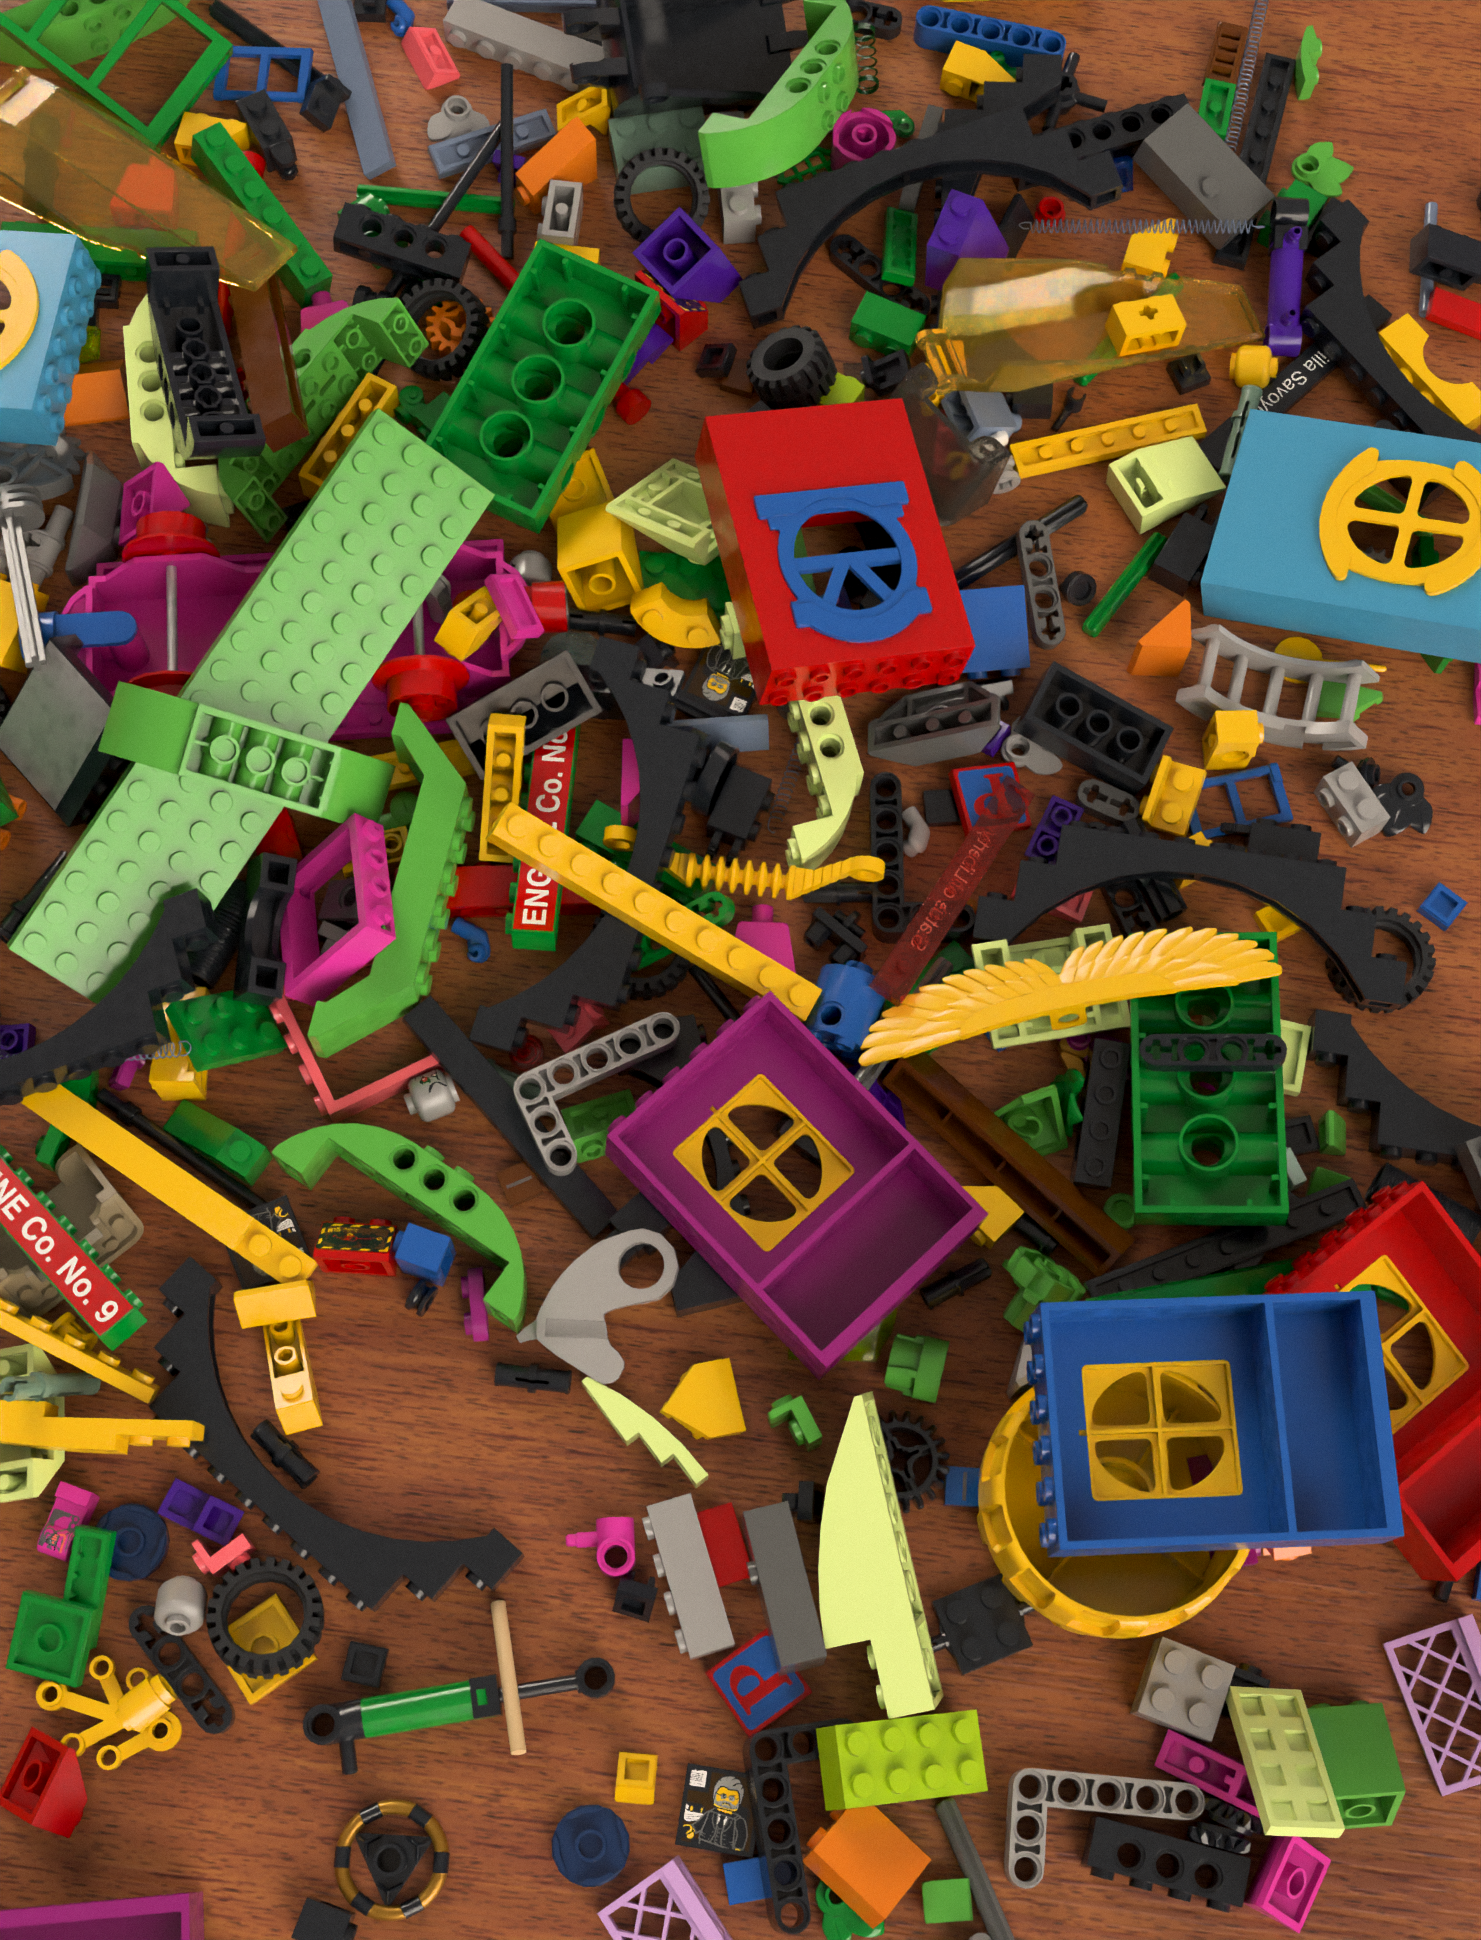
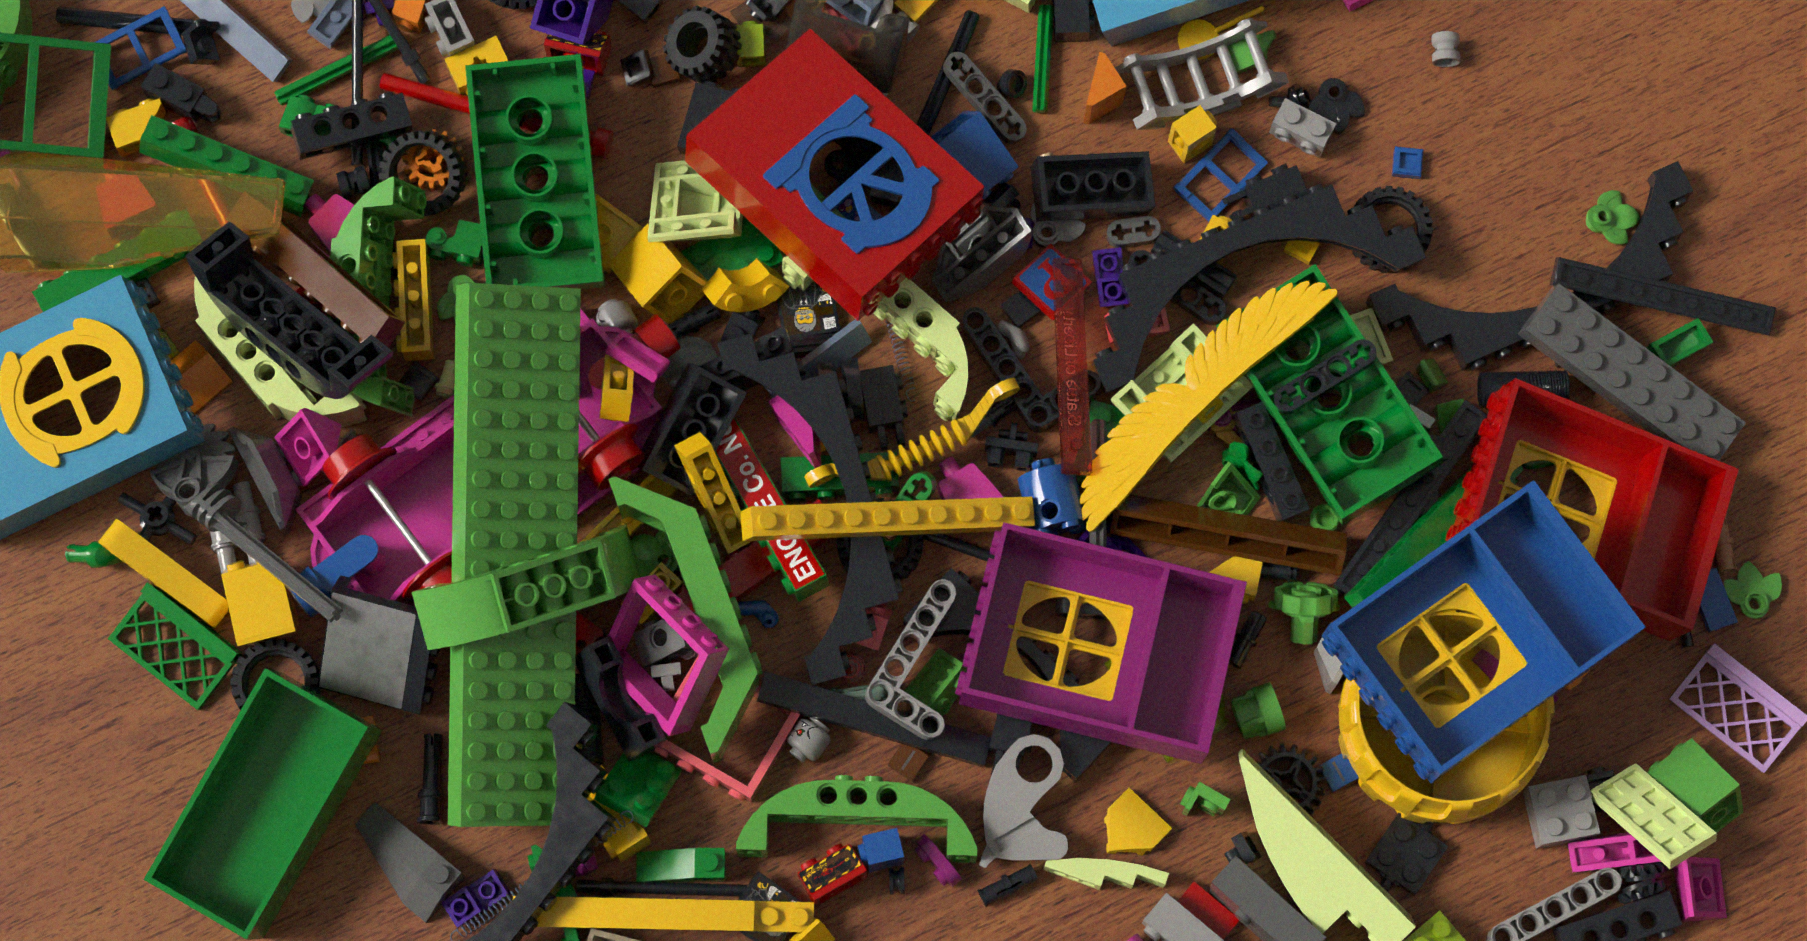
camera: 30 degrees left, 5 degrees up
(1172, 797) = (1177, 200): yellow bracket -> none

